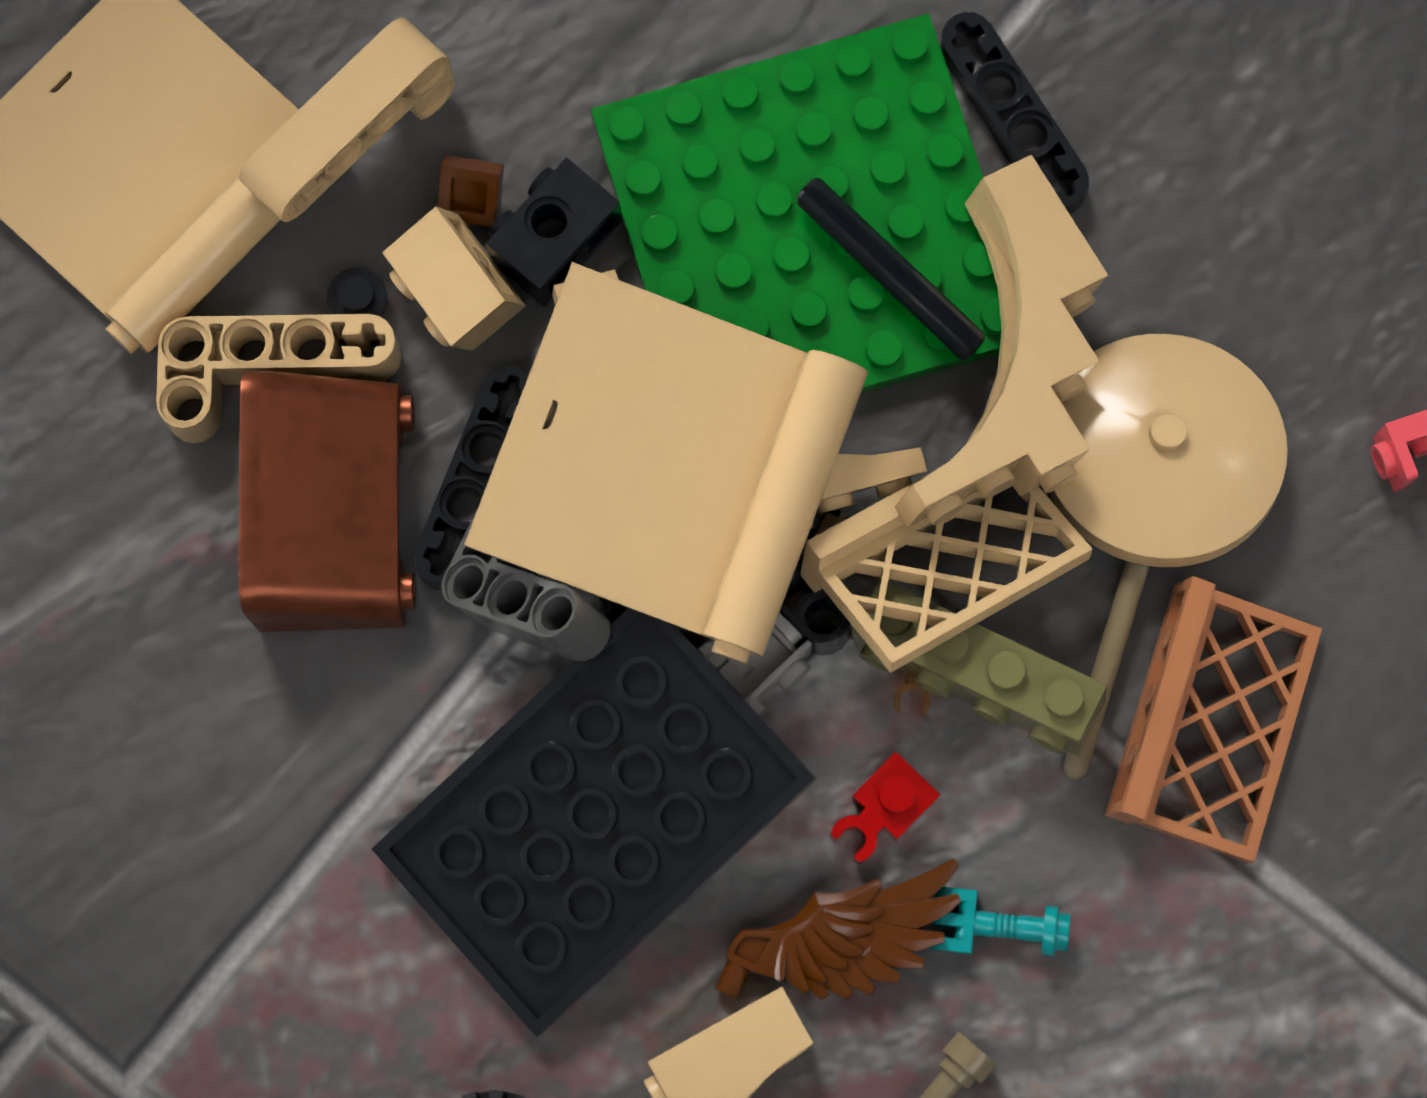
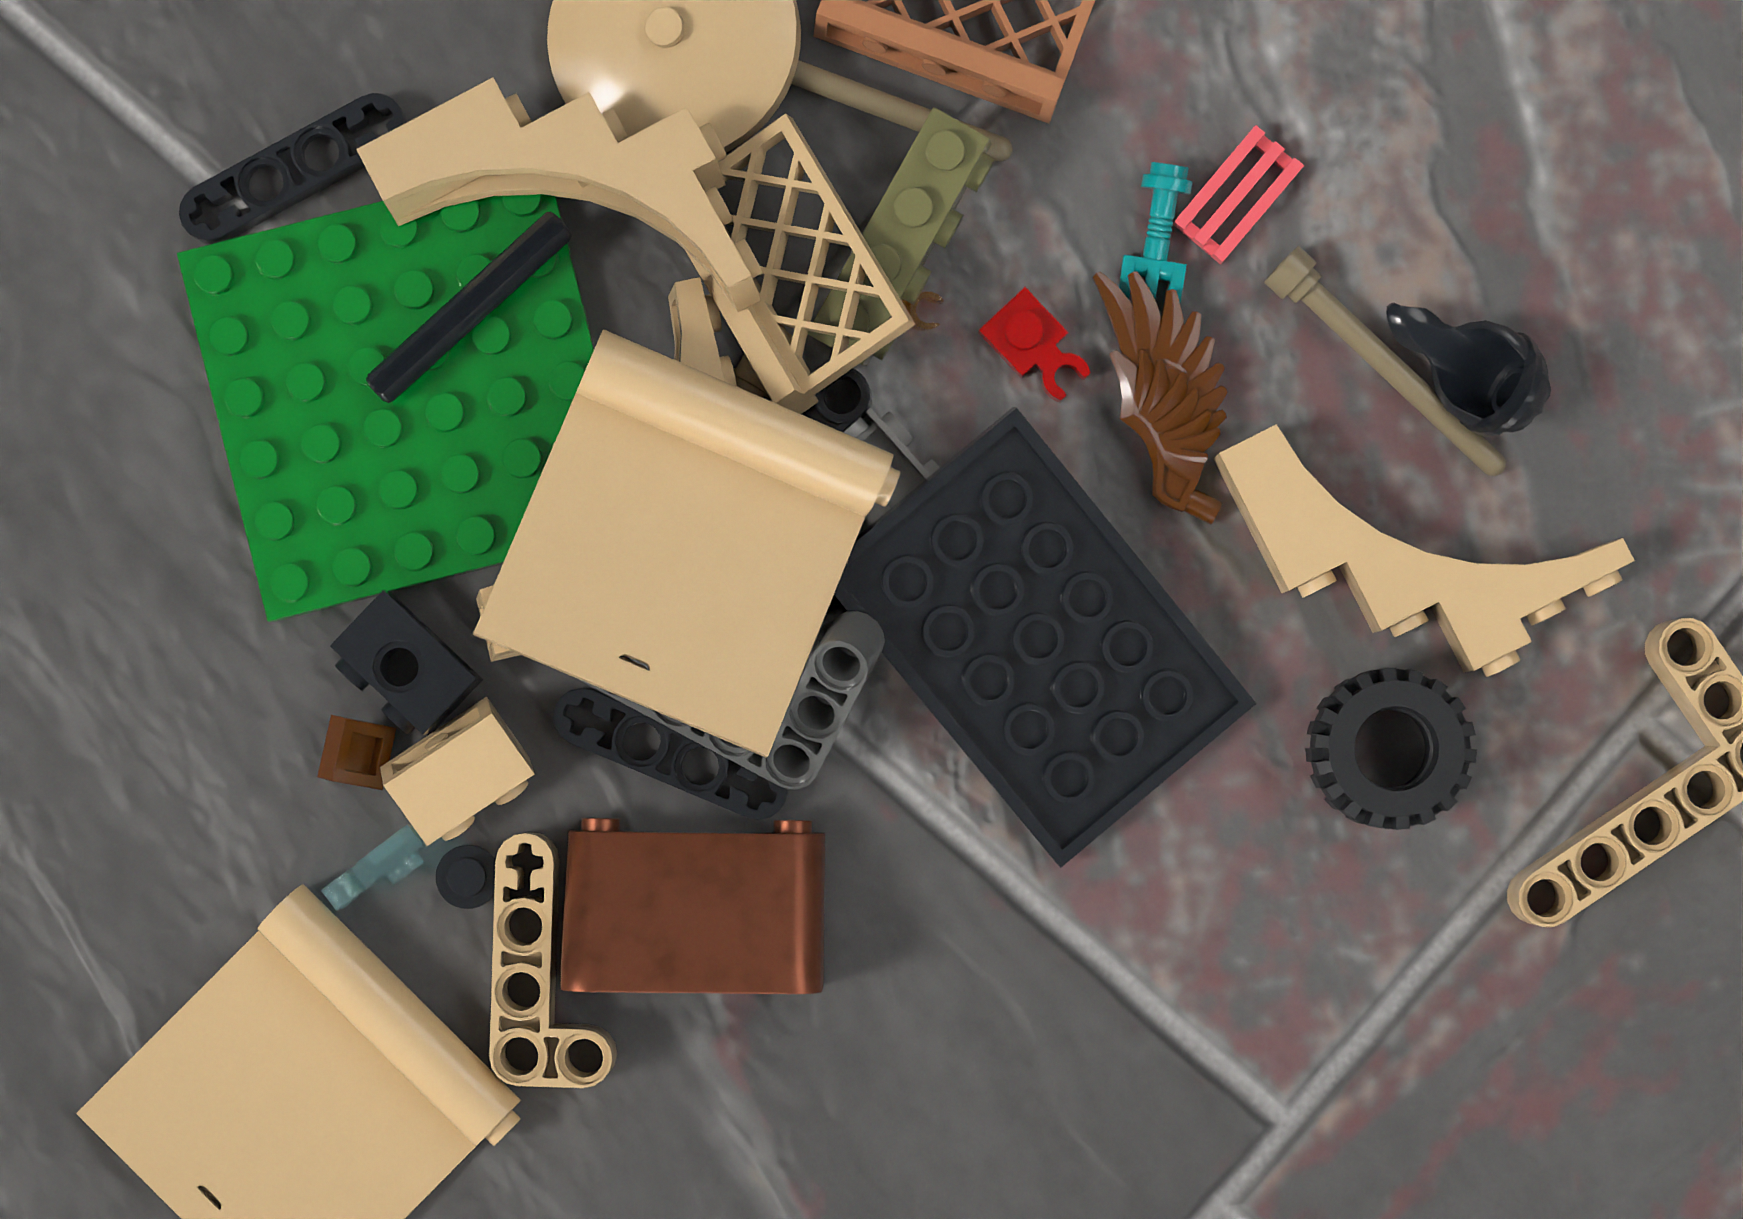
camera: 90 degrees left, 10 degrees up
(347, 117) = (235, 832): tan beam -> none
(371, 226) = (391, 859): none -> clear light blue plate
(1088, 1037) = (1272, 154): none -> coral tile

